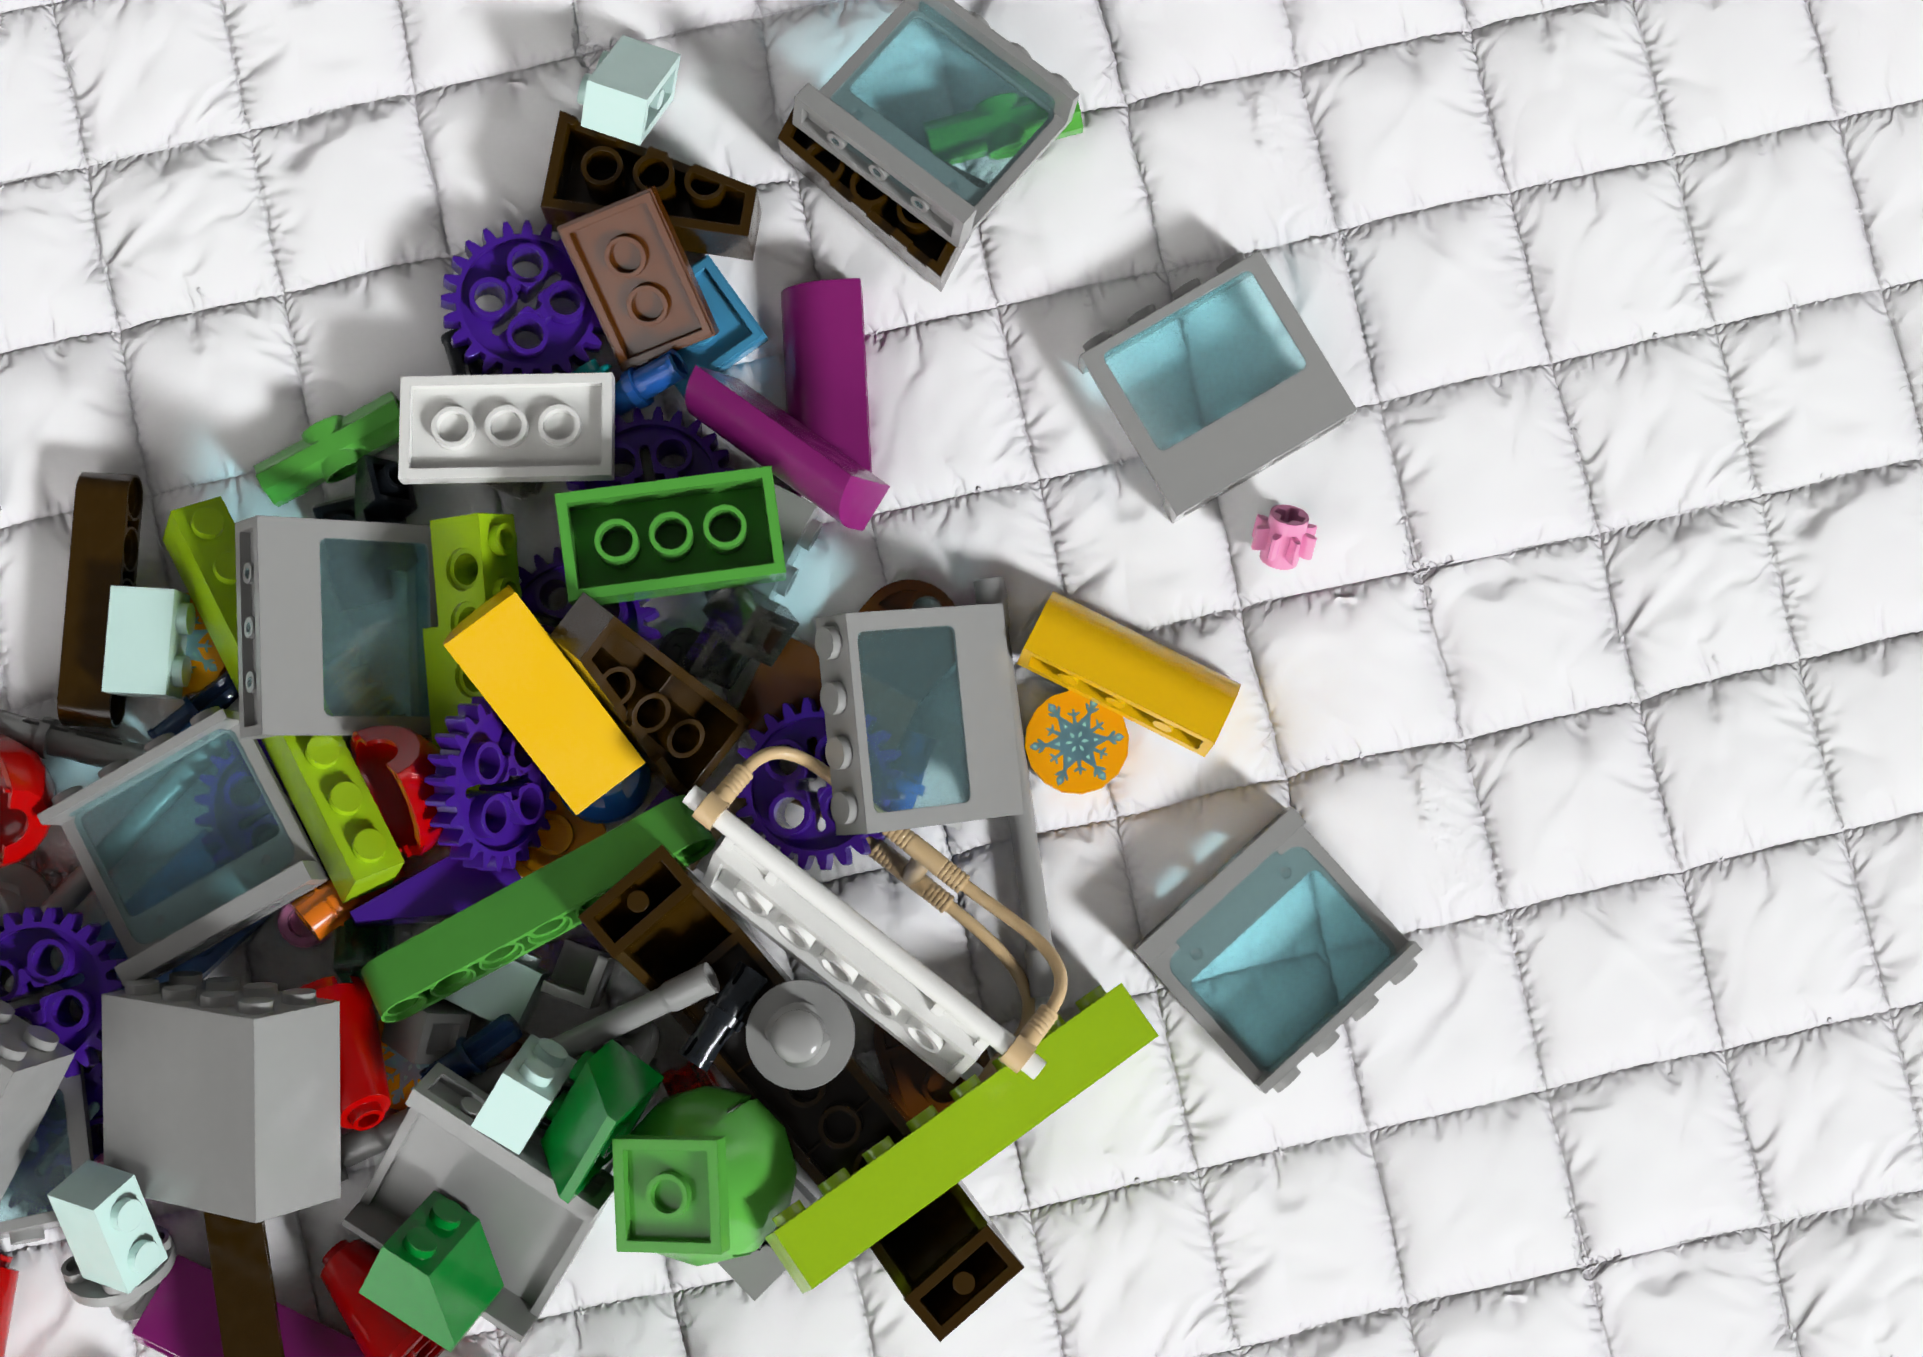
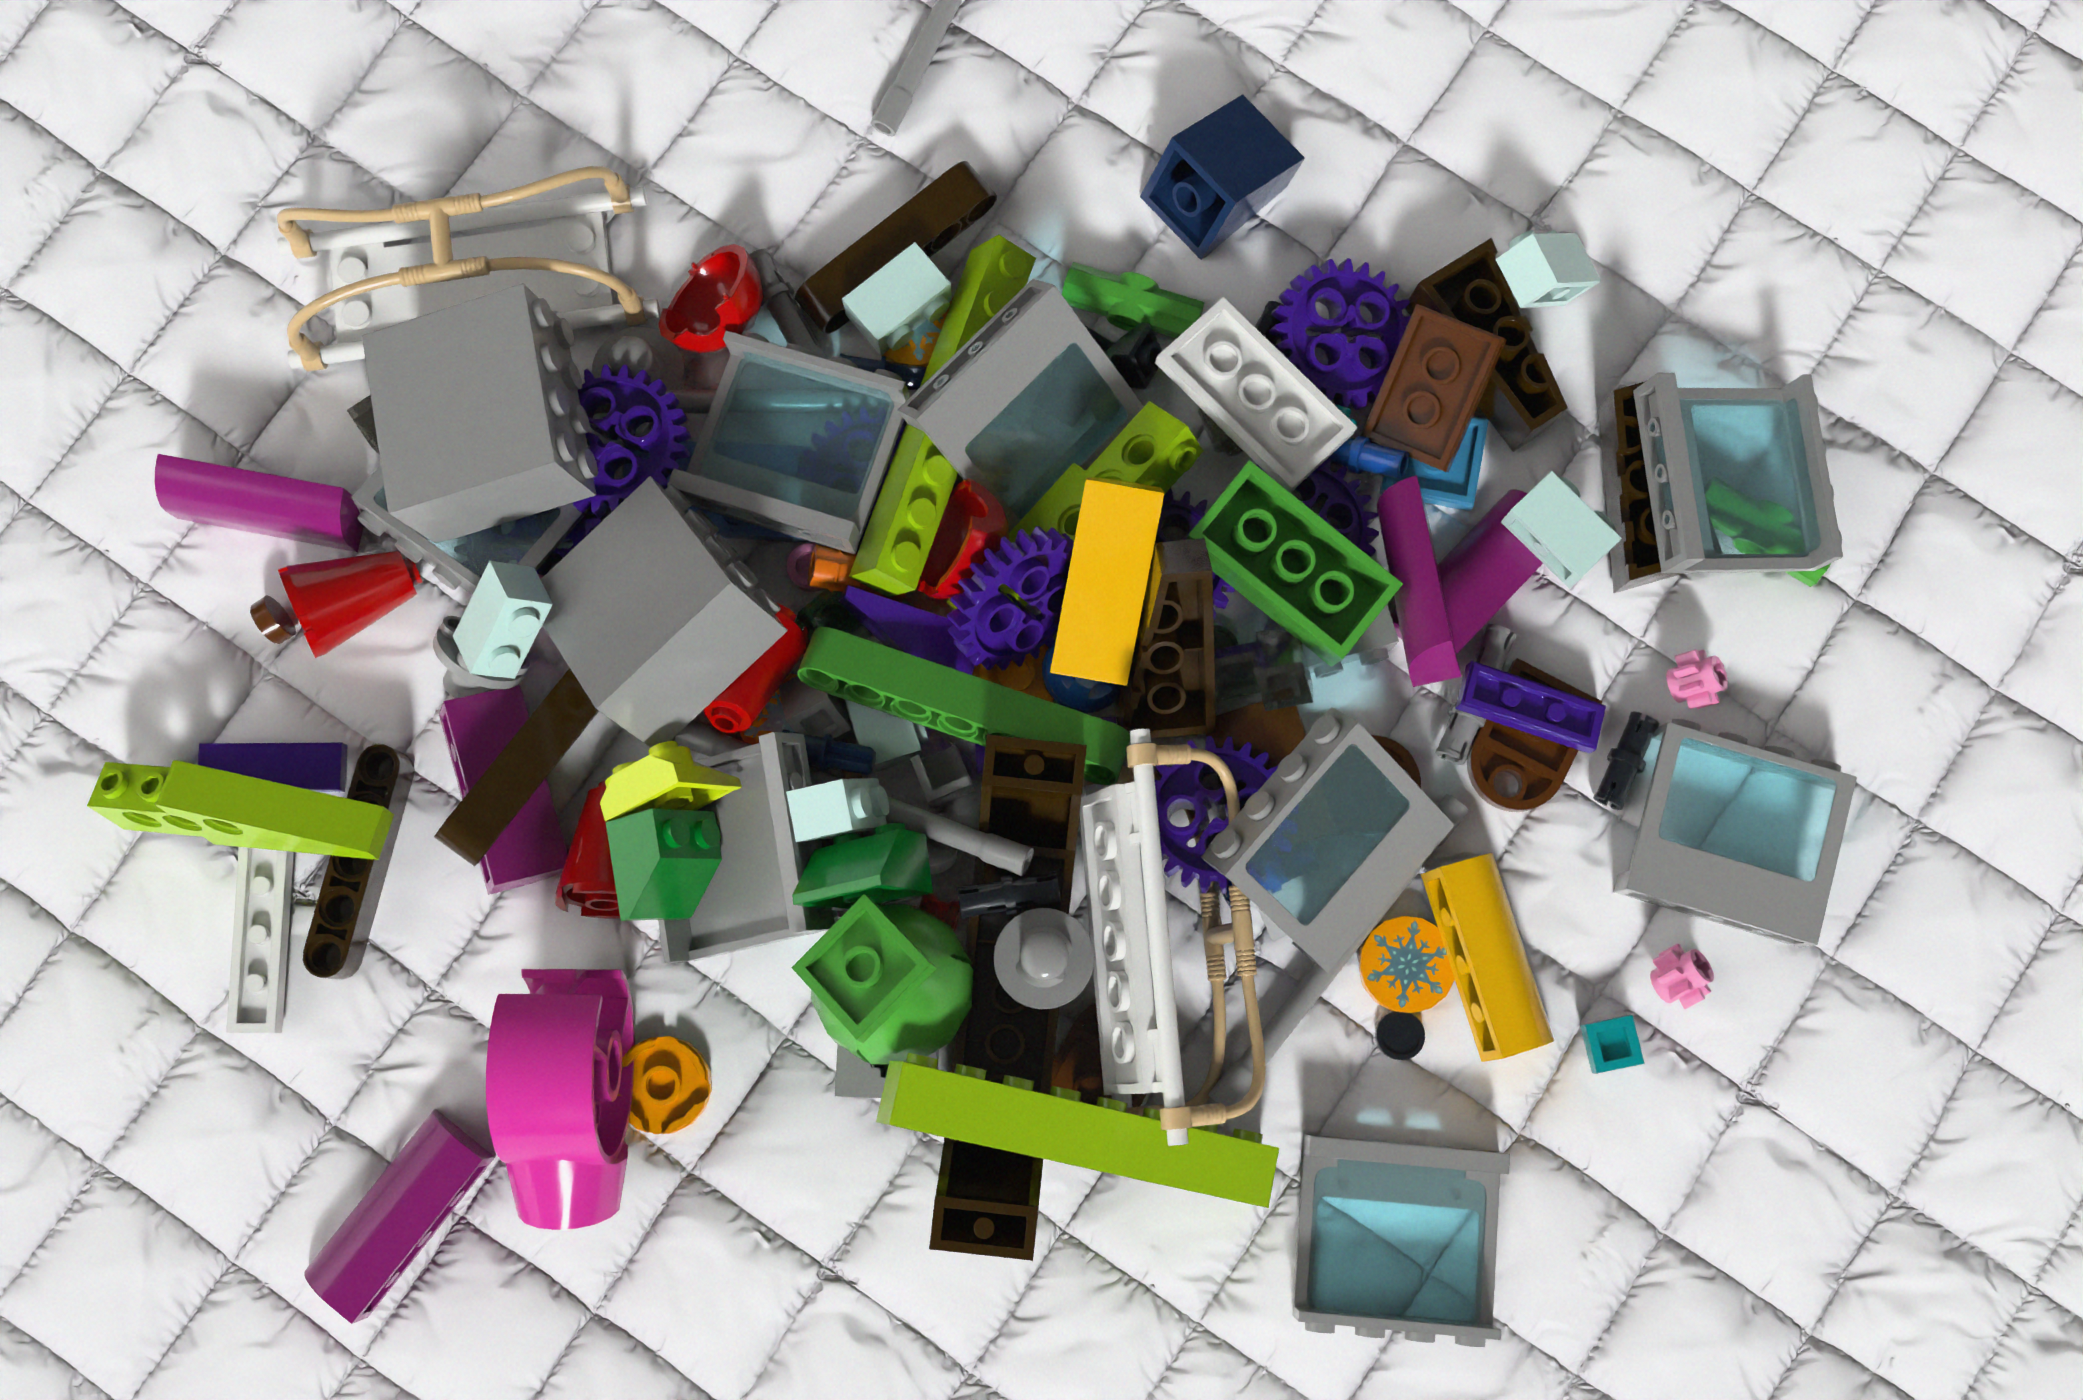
camera: 45 degrees right, 5 degrees down
(295, 274) = (1220, 175): none -> dark blue slope
(370, 1212) = (663, 781): none -> neon yellow slope
(848, 290) = (1561, 528): none -> light aqua brick
(921, 491) = (1462, 725): none -> light grey pin
(967, 450) = (1530, 707): none -> dark purple tile
(991, 469) = (1532, 760): none -> reddish brown tile
(1069, 296) = (1697, 679): none -> bright pink gear
(1080, 413) = (1626, 760): none -> black pin
(1126, 800) = (1400, 1035): none -> black piece
(1285, 641) = (1612, 1044): none -> teal plate

